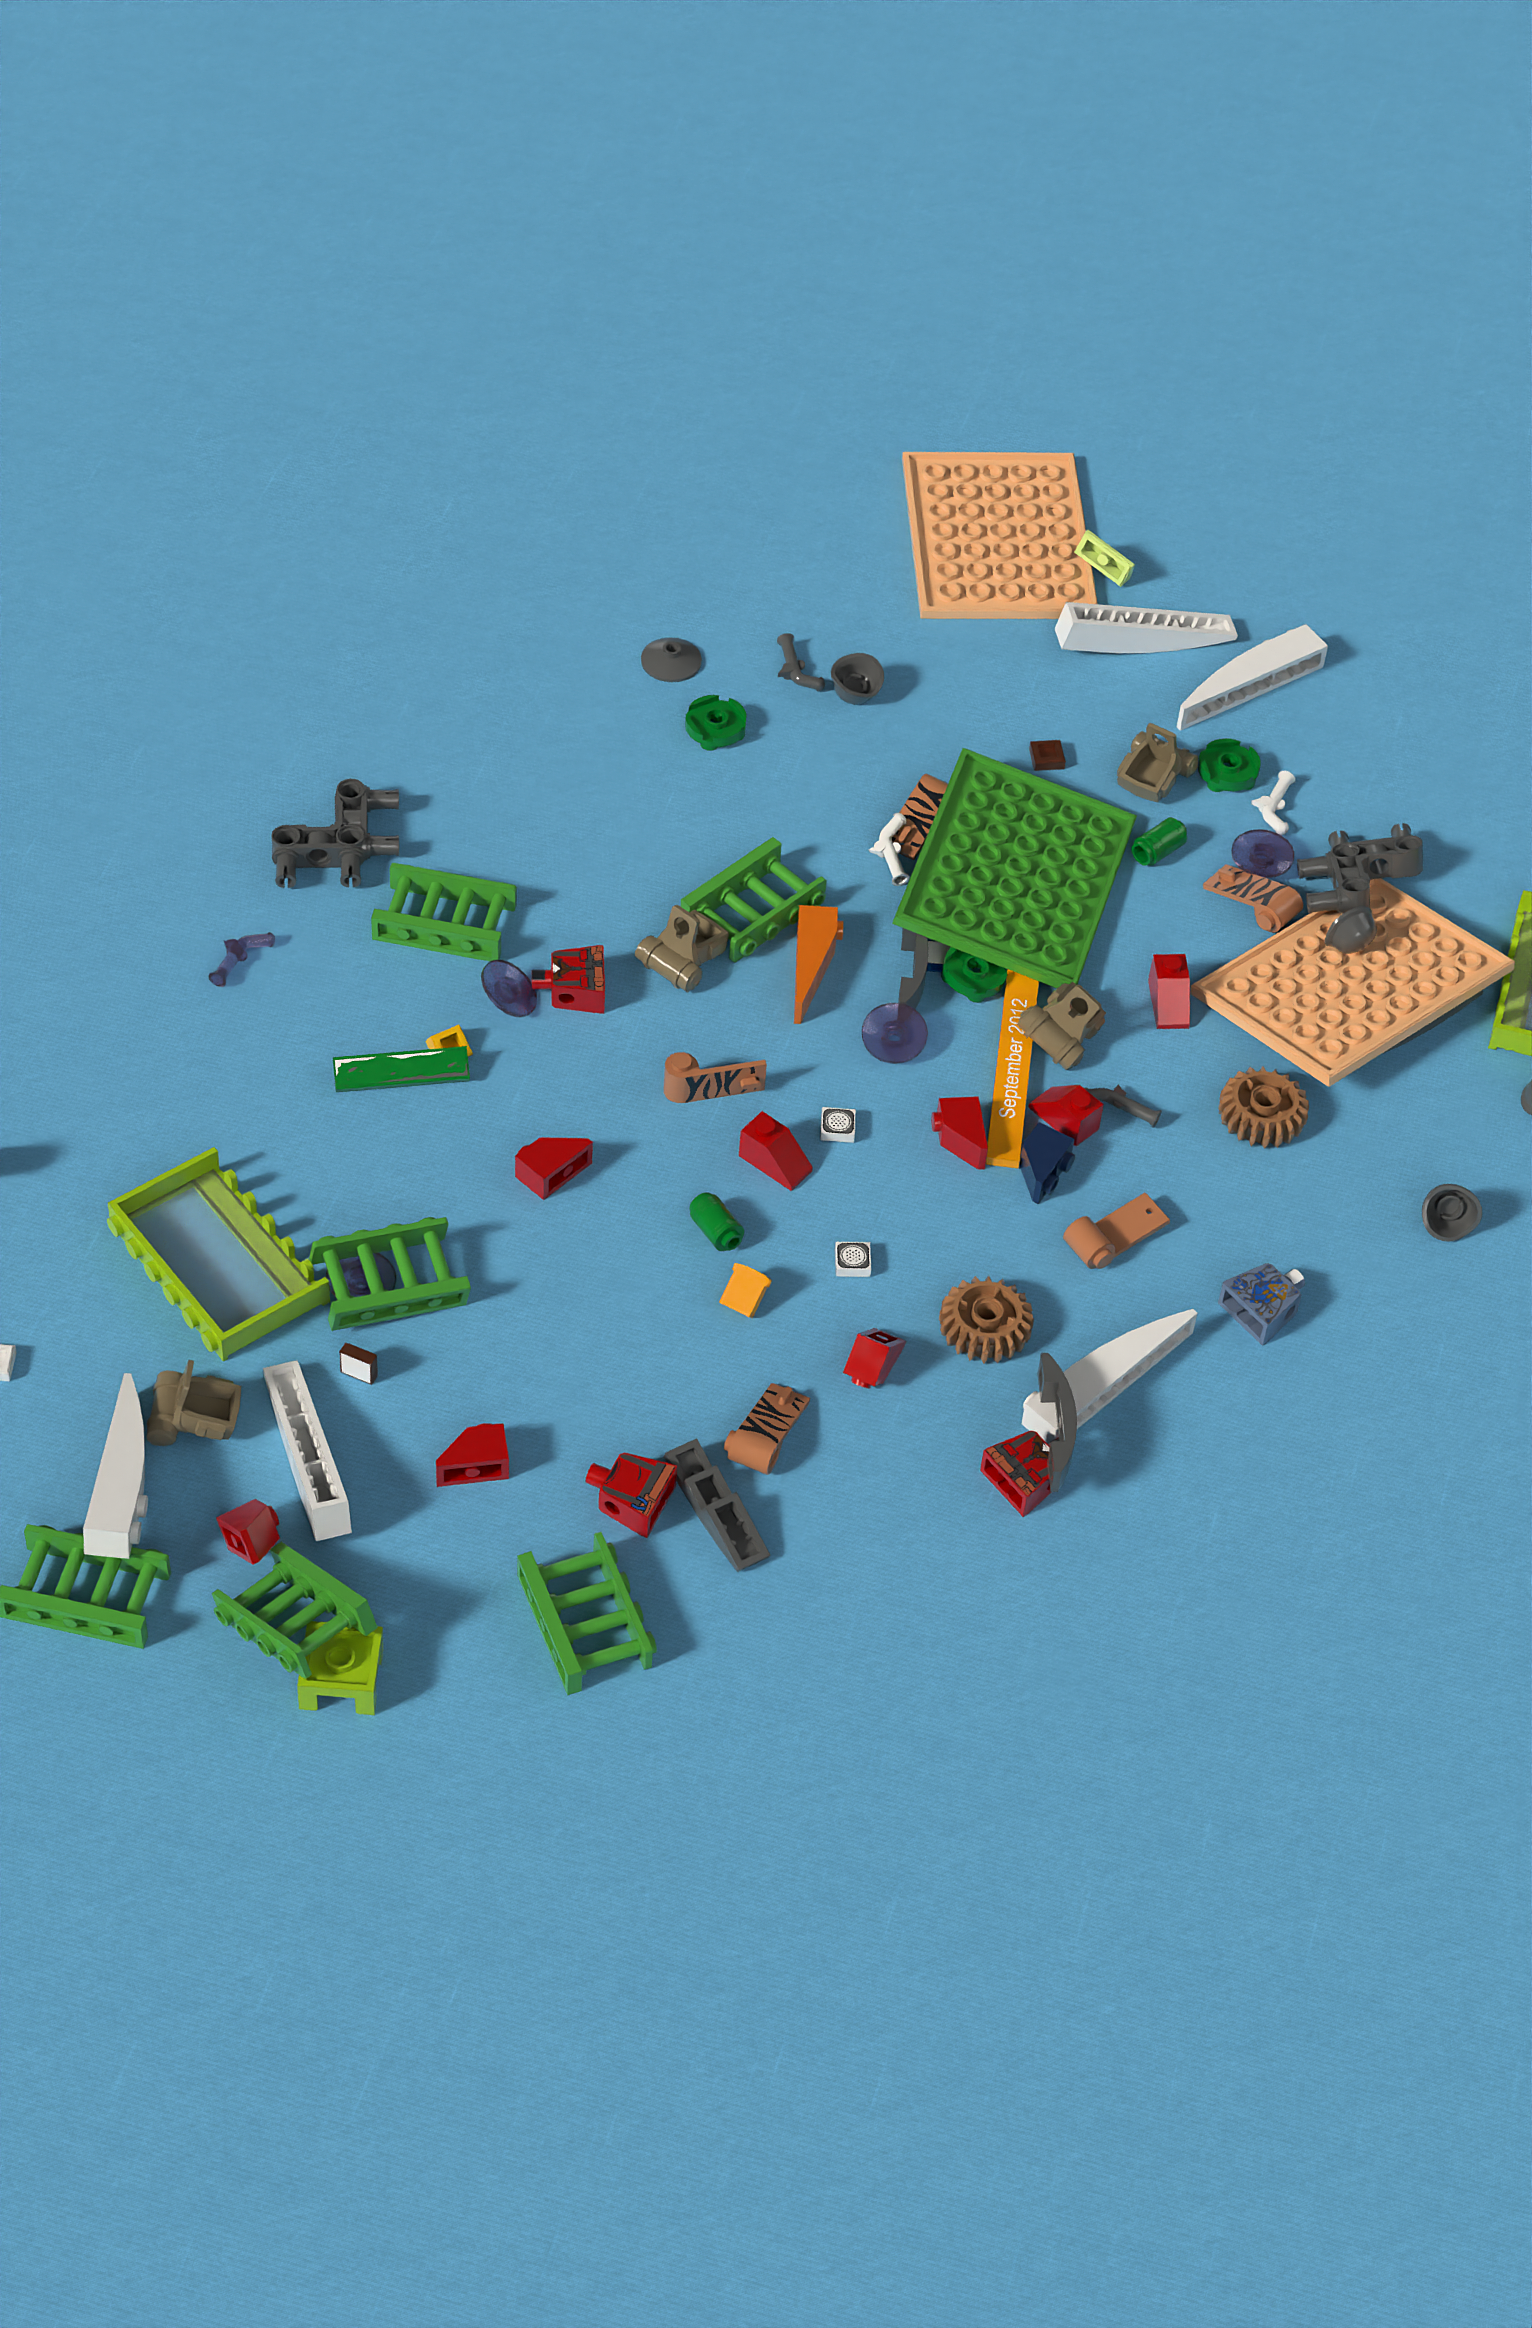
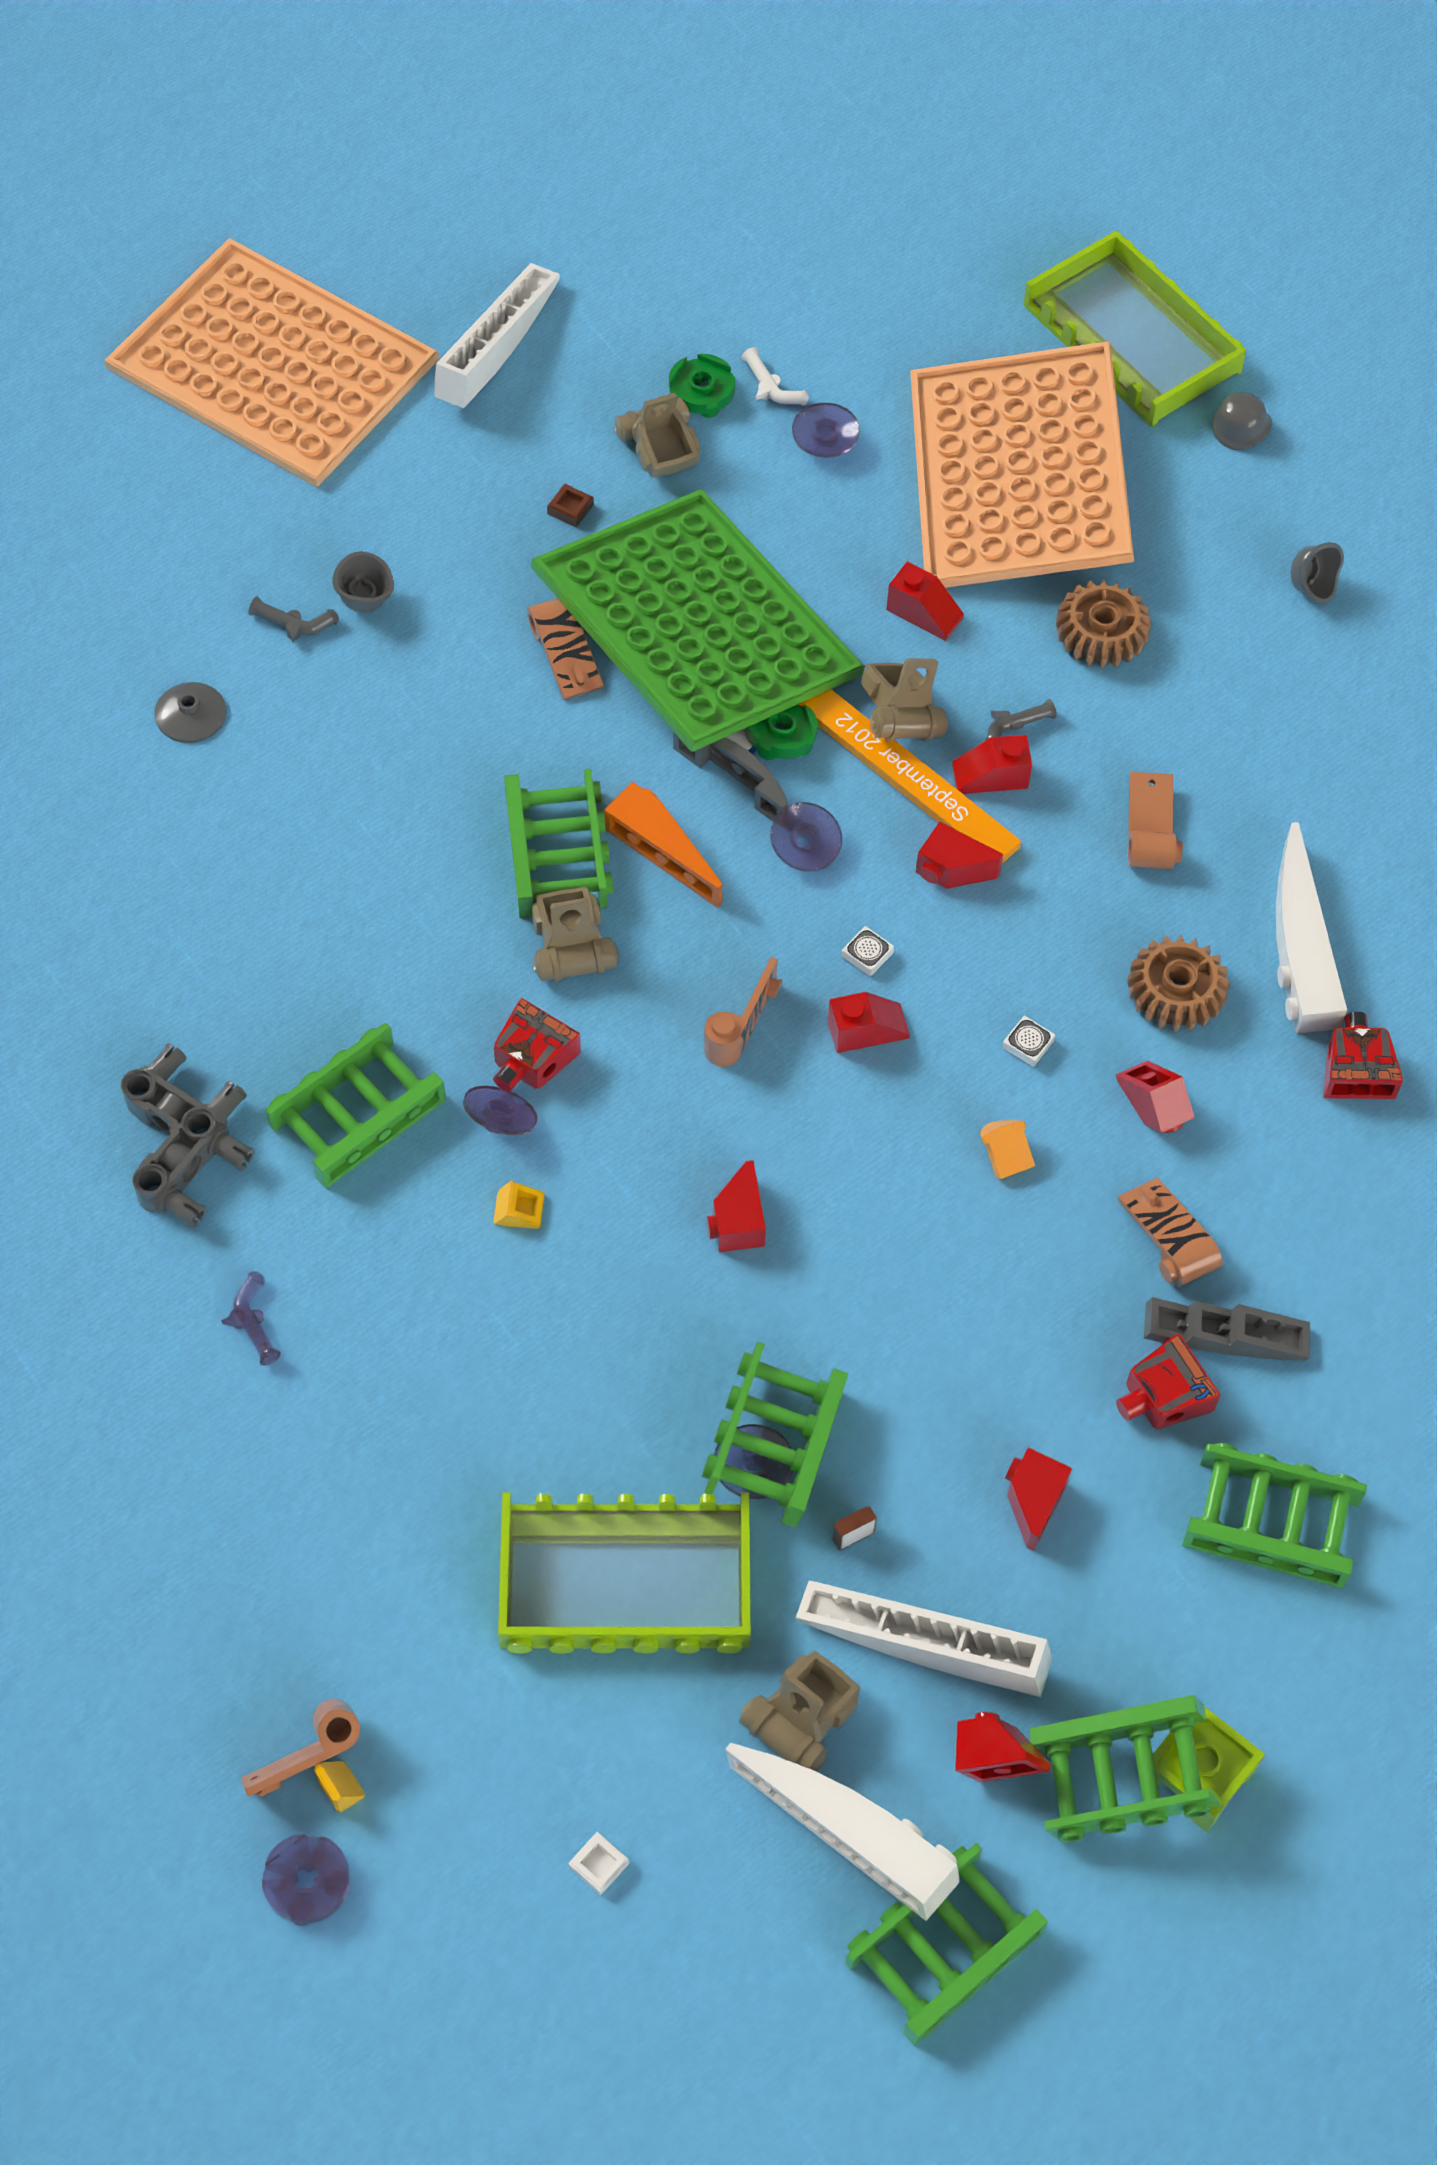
camera: 50 degrees left, 10 degrees up
(401, 1069) = (520, 1266): green tile -> none
(711, 734) = (309, 745): green plate -> none
(716, 1221) = (911, 1120): green head -> none
(889, 850) = (584, 697): white piece -> none
(1044, 1158) = (1037, 822): dark blue slope -> none
(1055, 1388) = (1356, 995): dark grey slope -> none
(1105, 558) = (386, 302): yellowish green slope -> none
(1159, 841) = (748, 493): green head -> none
(1254, 674) = (616, 284): white slope -> none
(1262, 1299) = (1308, 767): sand blue torso -> none
(1272, 901) = (884, 458): nougat door -> none
(1352, 930) = (984, 426): dark grey helmet -> none
(1353, 865) = (898, 376): dark grey pin -> none

